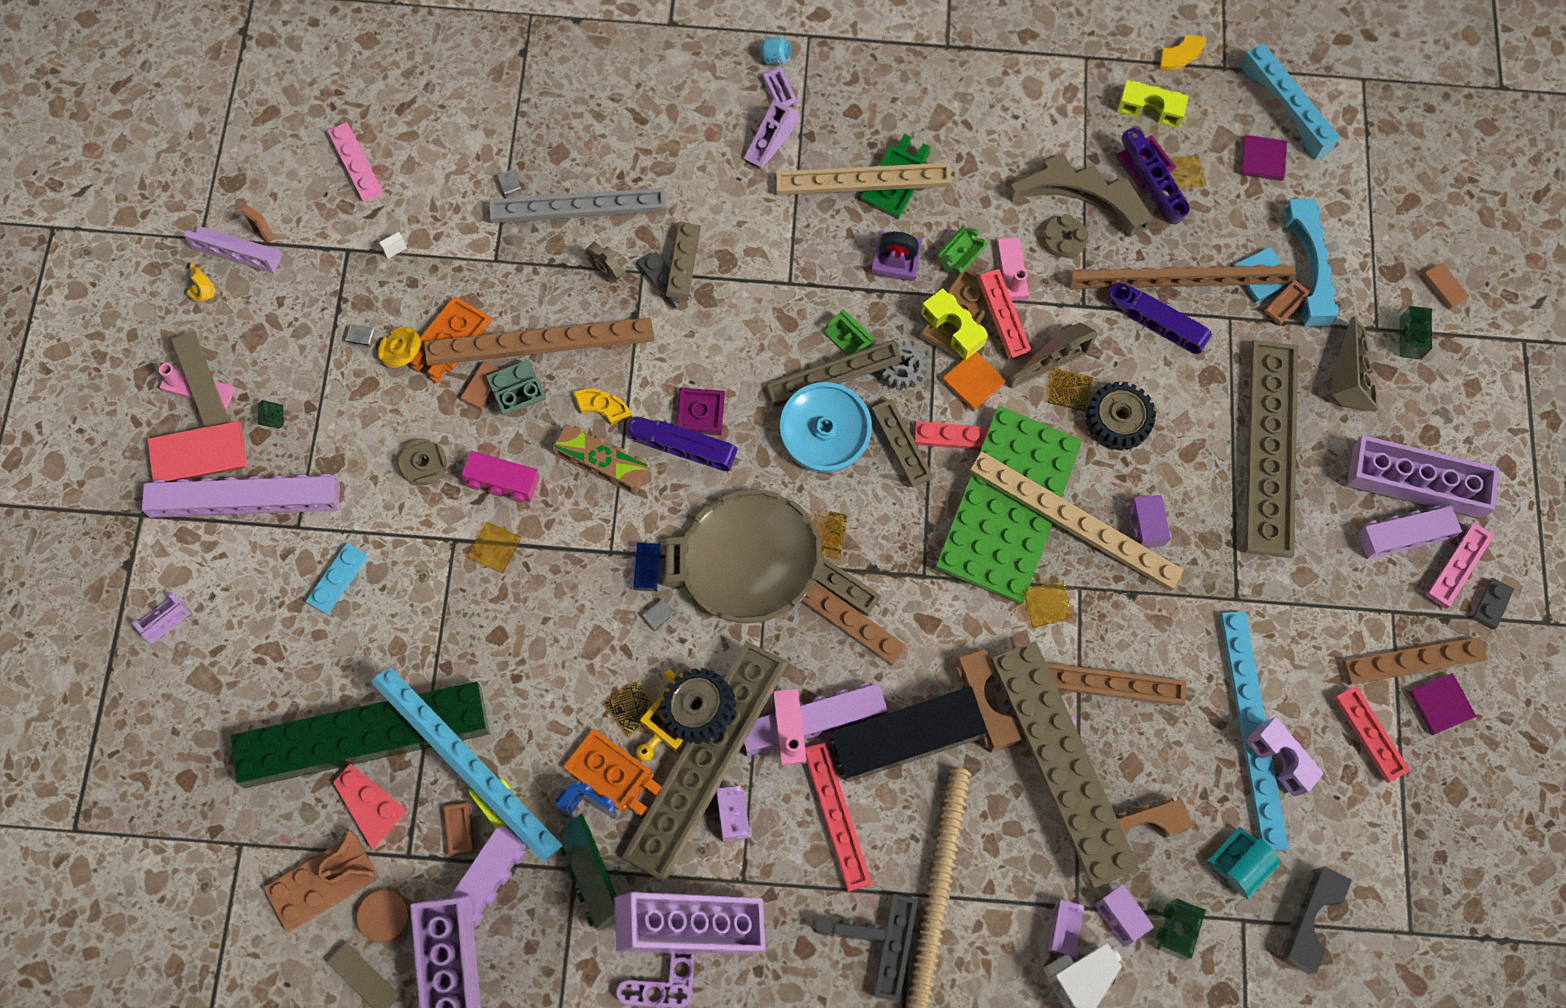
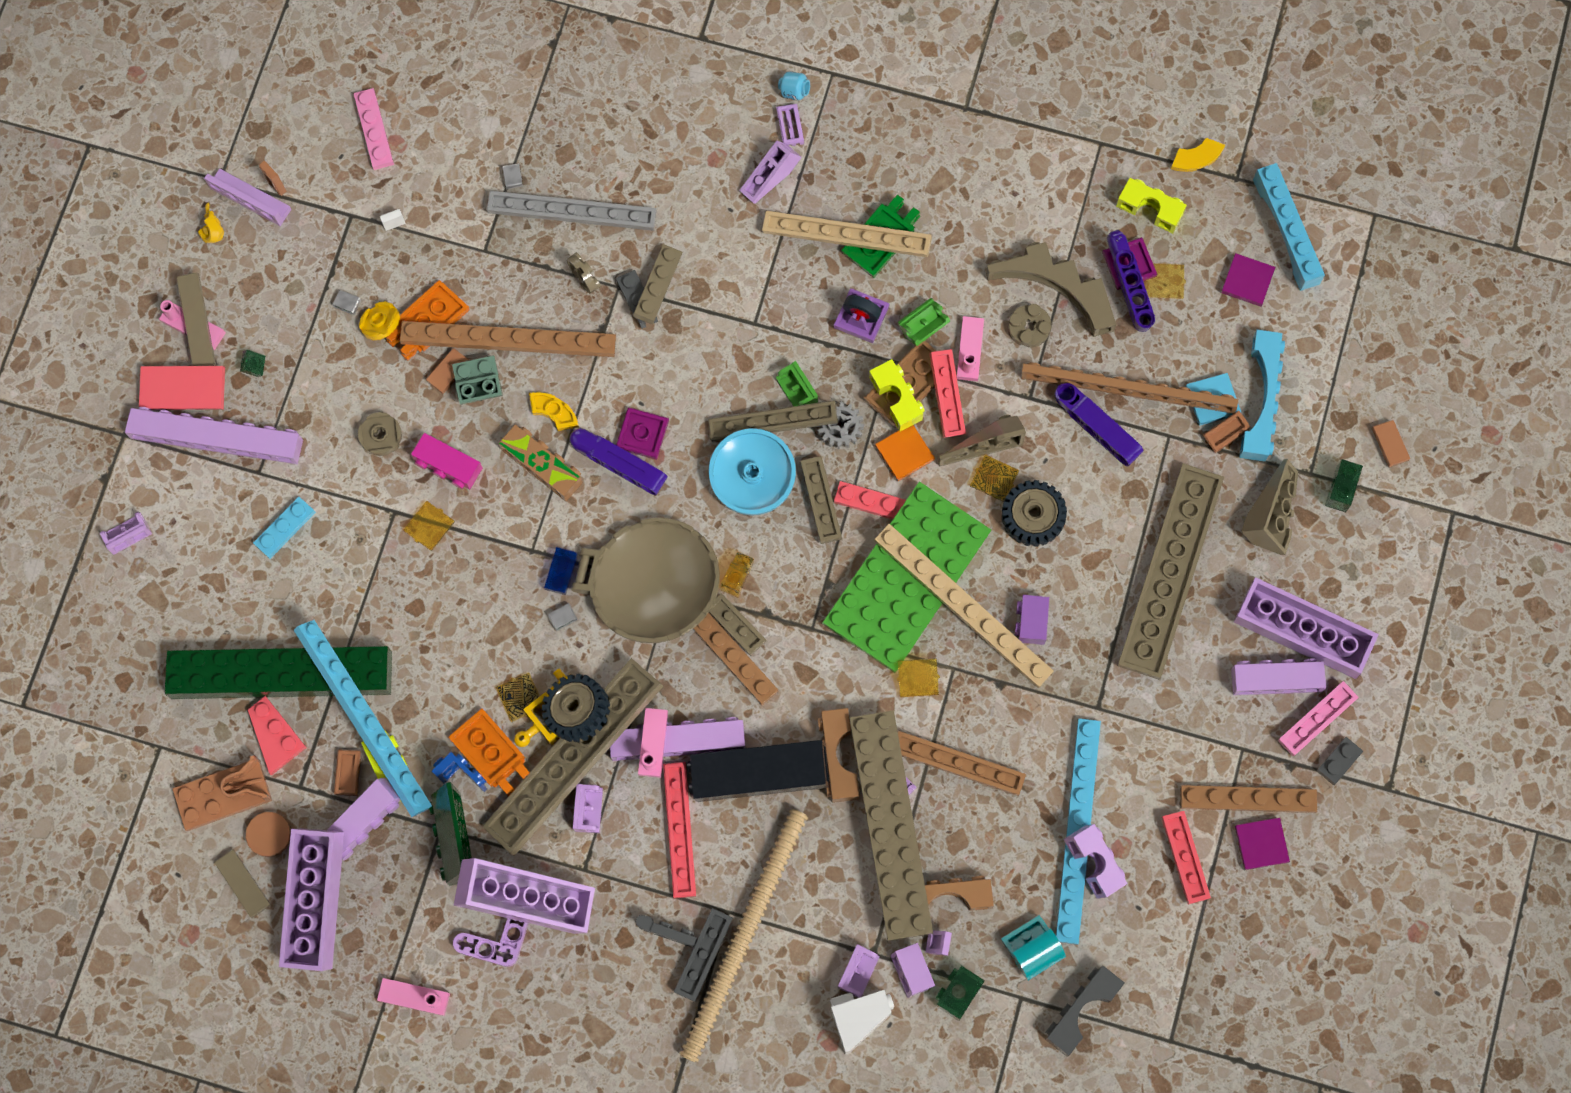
camera: 20 degrees right, 5 degrees up
(1144, 880) = (938, 943): none -> lavender plate

